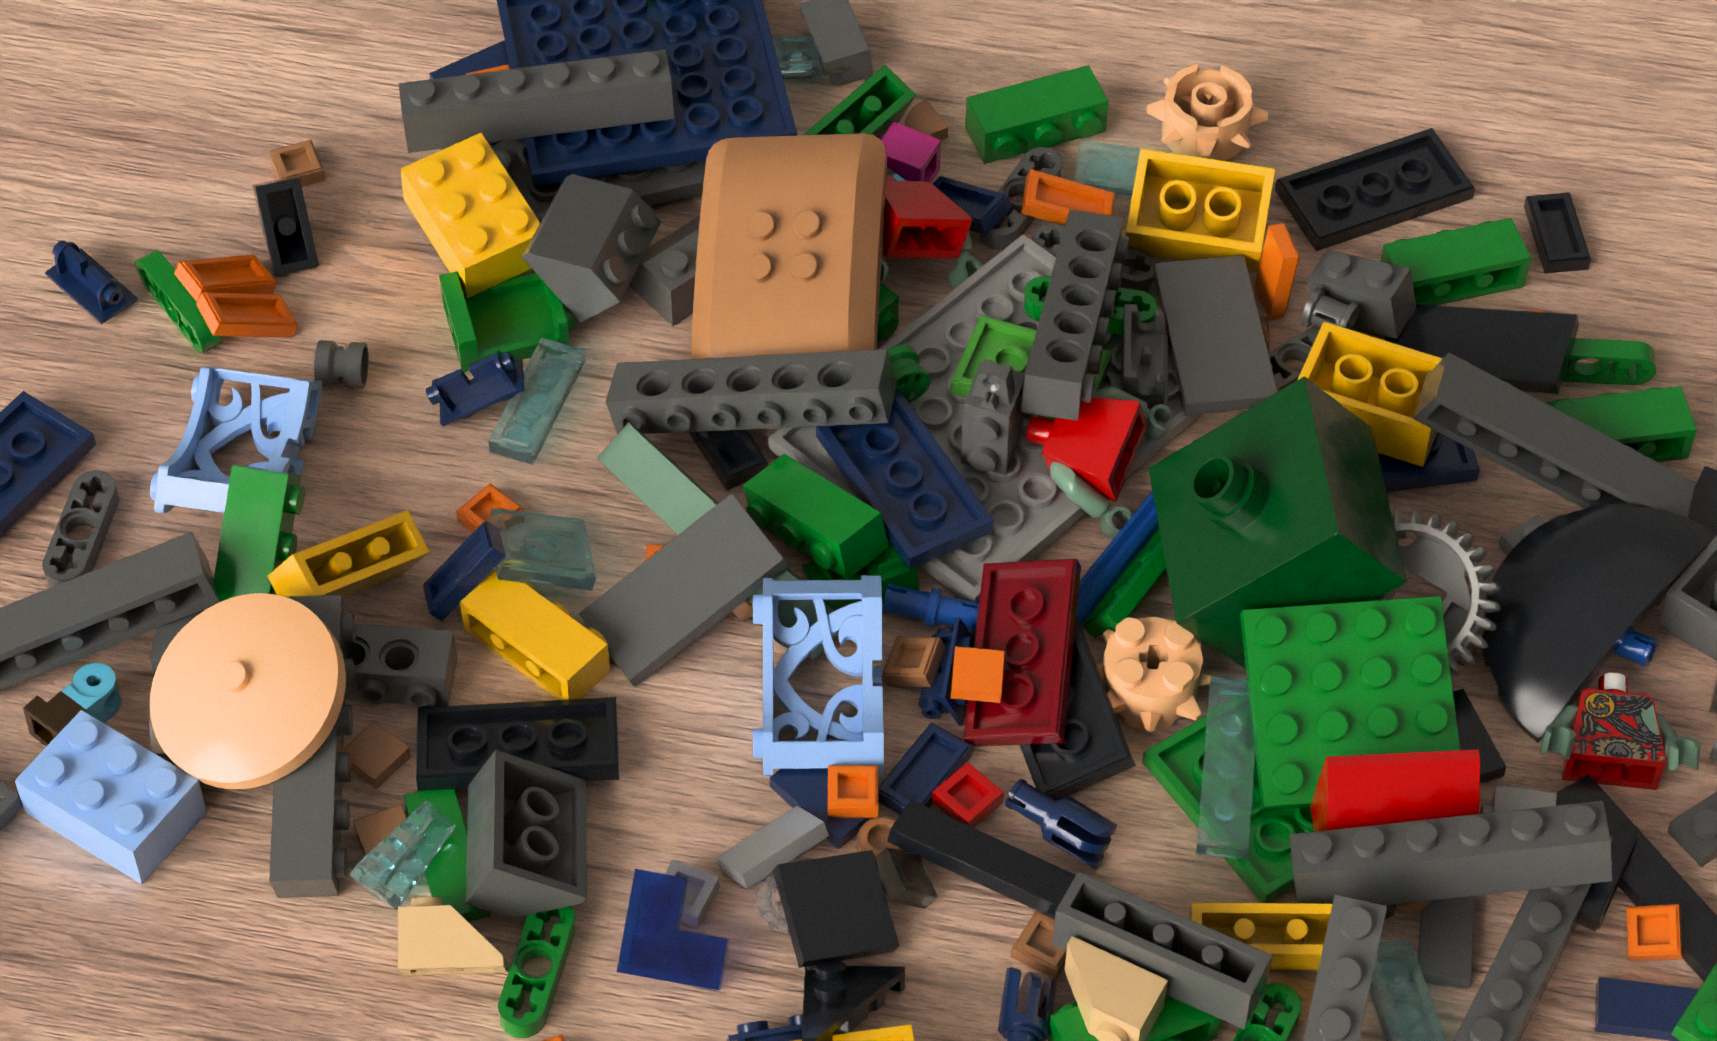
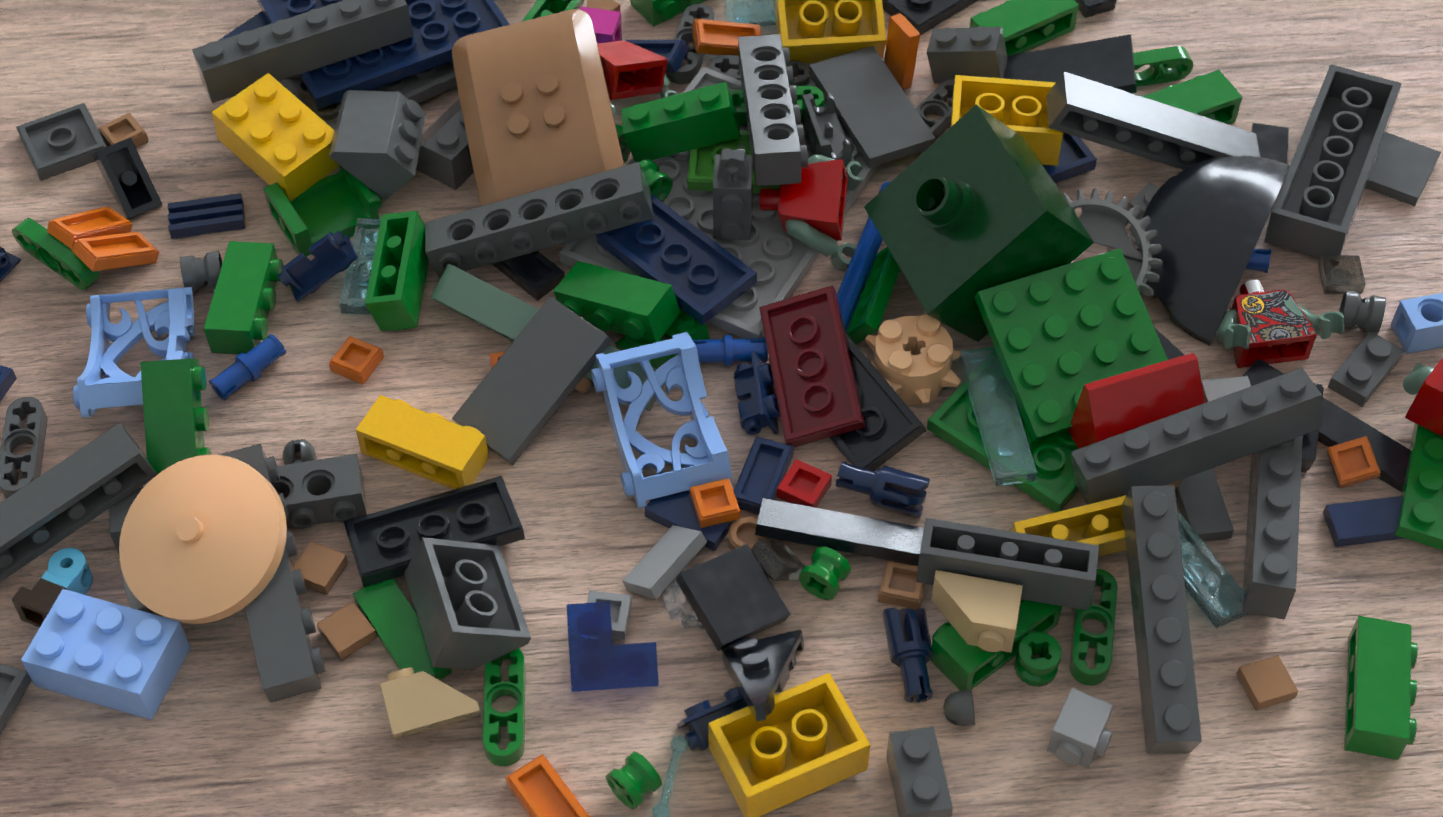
camera: 15 degrees left, 0 degrees up
(223, 158) = (61, 141): none -> dark grey tile
(352, 560) = (258, 416): yellow brick -> none
(361, 494) = (247, 367): none -> blue pin
(367, 286) = (208, 213): none -> dark blue tile
(379, 407) = (243, 297): none -> green brick
(400, 612) = (307, 451): none -> dark grey hinge
(403, 855) = (369, 641): clear light blue slope -> none
(464, 570) = (351, 405): dark blue tile -> none
(544, 549) = (408, 375): clear light blue tile -> none
(567, 418) = (398, 272): none -> green brick
(914, 661) = (727, 394): medium nougat tile -> none
(955, 907) = (824, 573): none -> green wheel
(962, 306) = (680, 122): none -> green brick
(977, 674) = (784, 390): orange tile -> none
(1327, 309) = (945, 71): dark grey bush -> none

